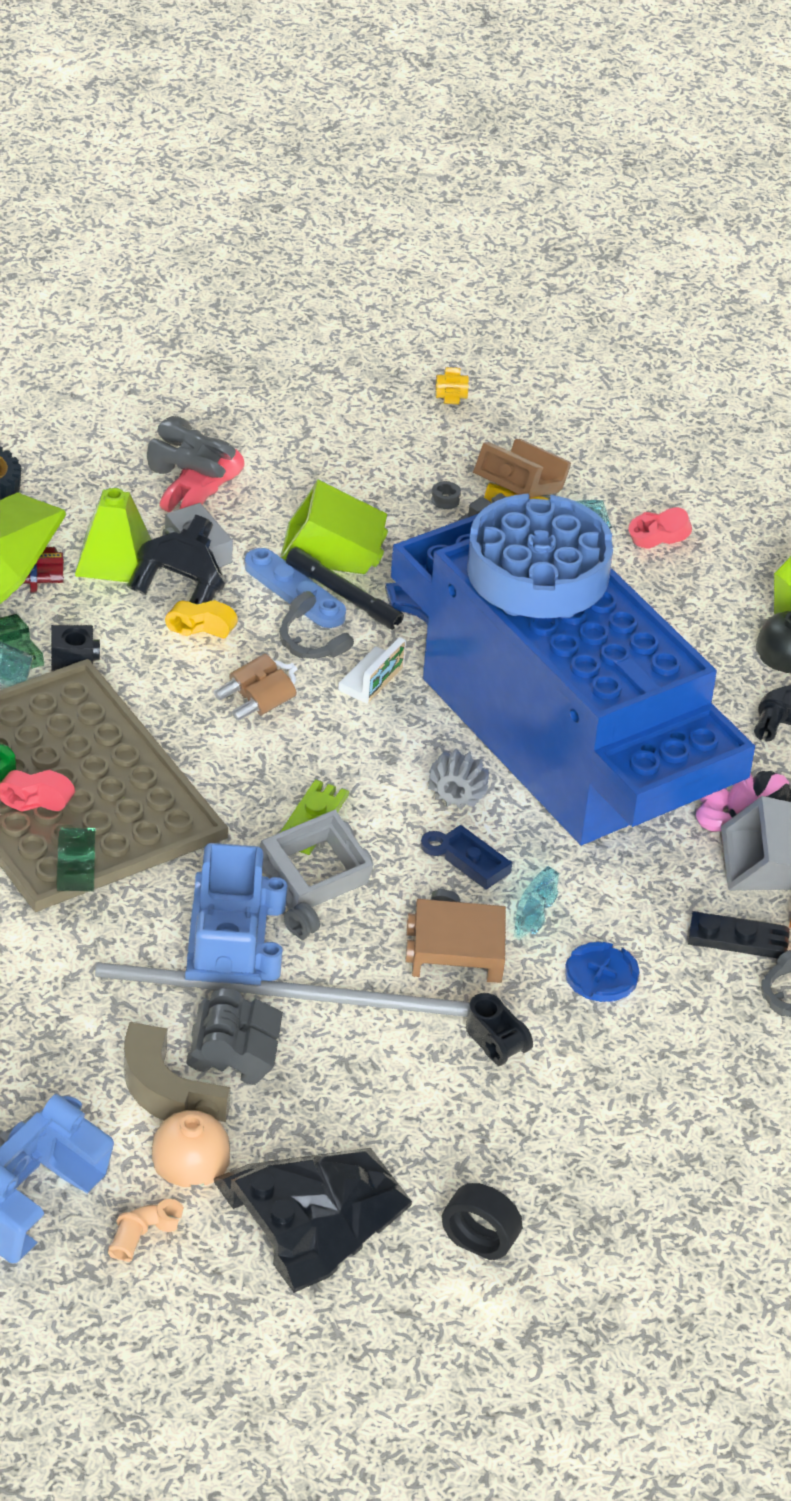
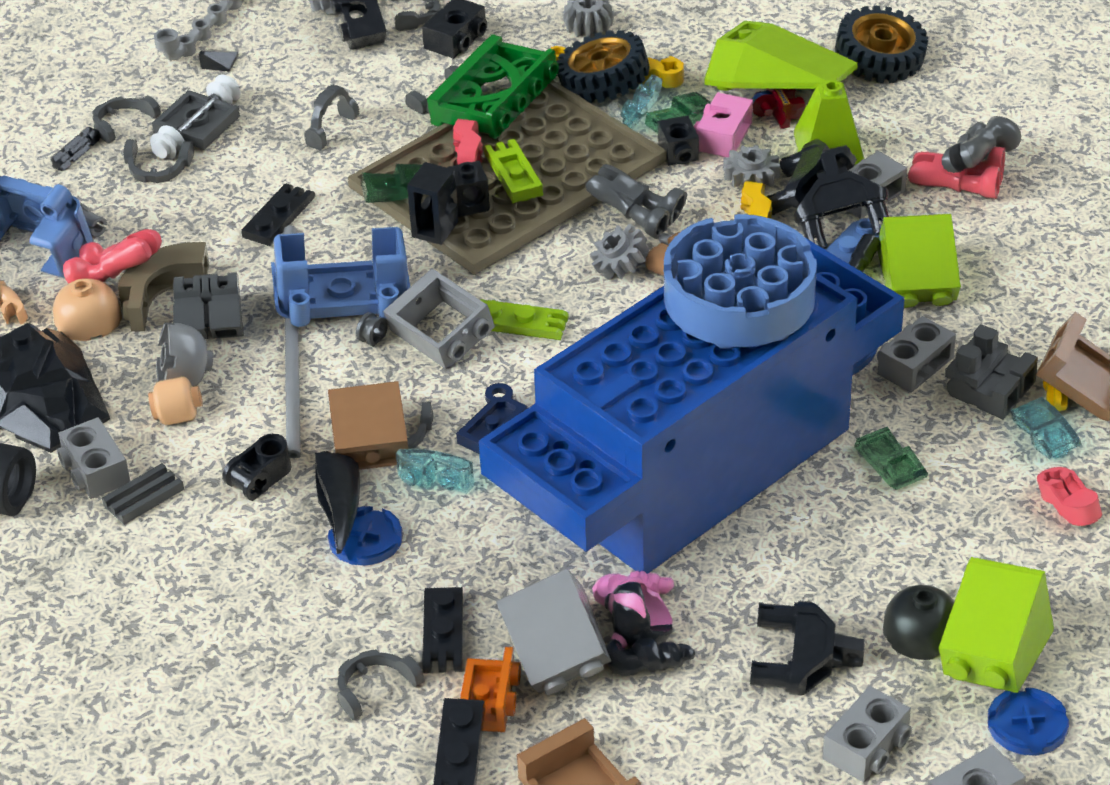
camera: 85 degrees right, 0 degrees up
(41, 612) = (724, 124): none -> bright pink brick
(64, 975) = (277, 214): none -> black hinge
(97, 764) = (514, 171): none -> lime hinge
(124, 798) = (471, 189): none -> black brick
(137, 608) = (751, 165): none -> light grey gear
(145, 1087) = (102, 263): none -> coral piece
(151, 827) = (438, 213): none -> black brick
(173, 692) = (629, 196): none -> dark grey piece
(240, 554) = (837, 192): none -> black connector
(256, 714) = (619, 251): none -> light grey gear
(318, 1063) = (183, 353): none -> light grey cylinder
(375, 1085) = (175, 401): none -> light nougat head
(446, 502) = (1038, 327): dark grey bush -> none
(450, 1157) = (93, 457): none -> light grey brick
(497, 1103) = (140, 490): none -> dark grey tile
(551, 977) = (338, 493): none -> black piece

